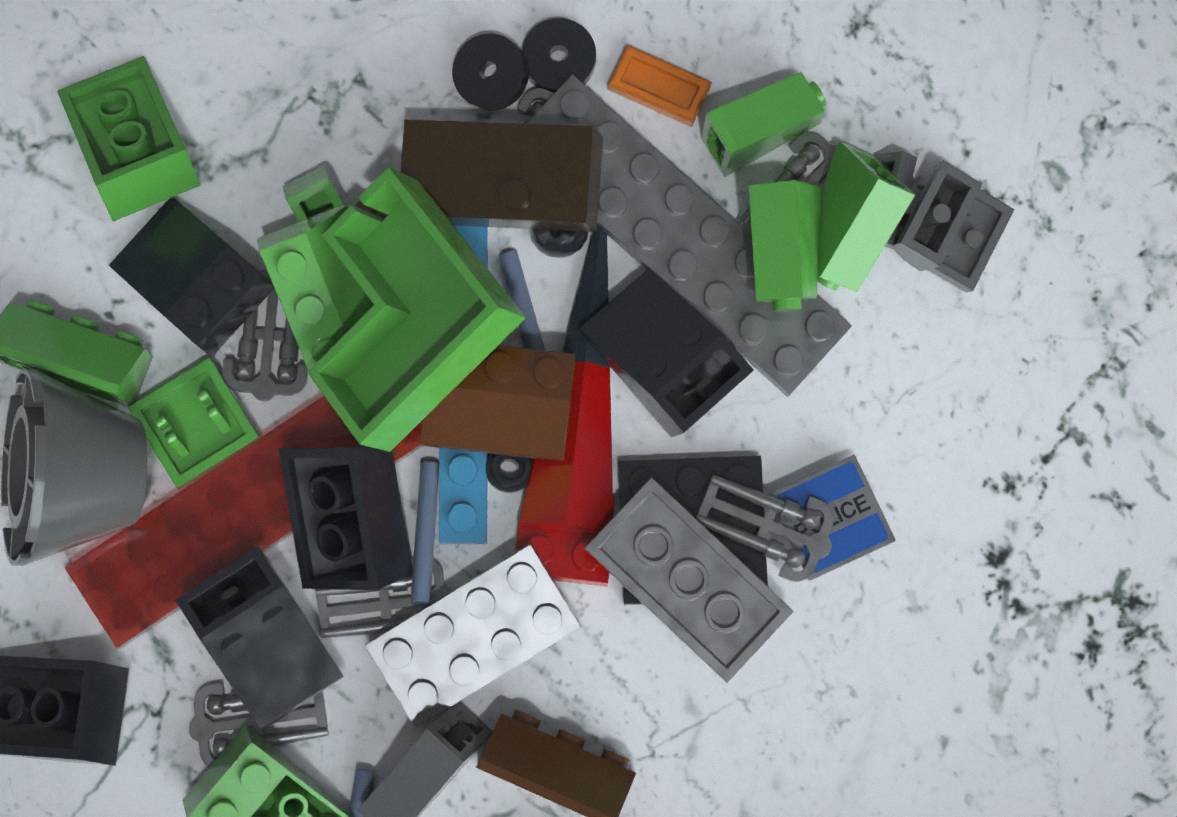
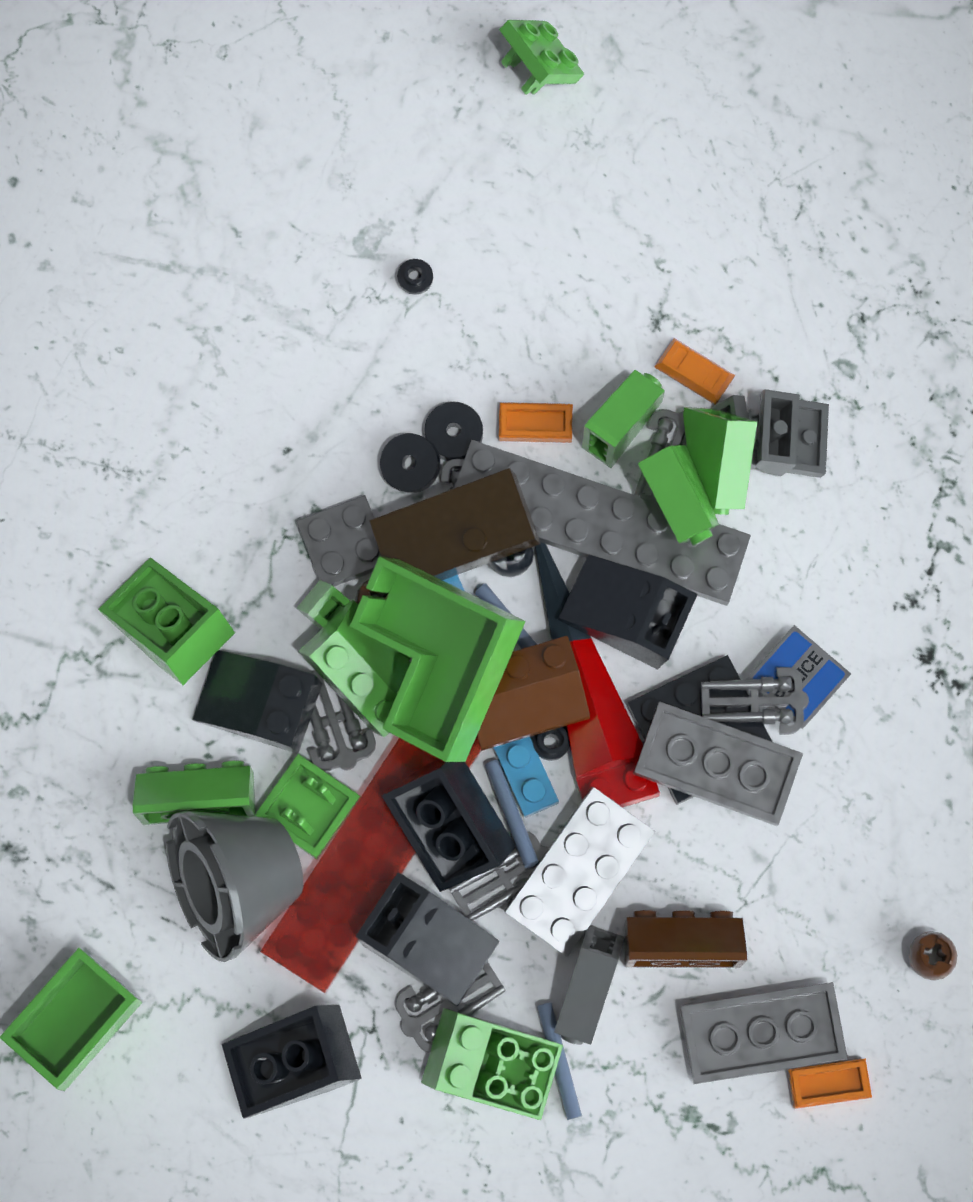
camera: 20 degrees left, 5 degrees down
(367, 128) = (341, 541): none -> flat silver plate
(874, 103) = (694, 371): none -> orange tile

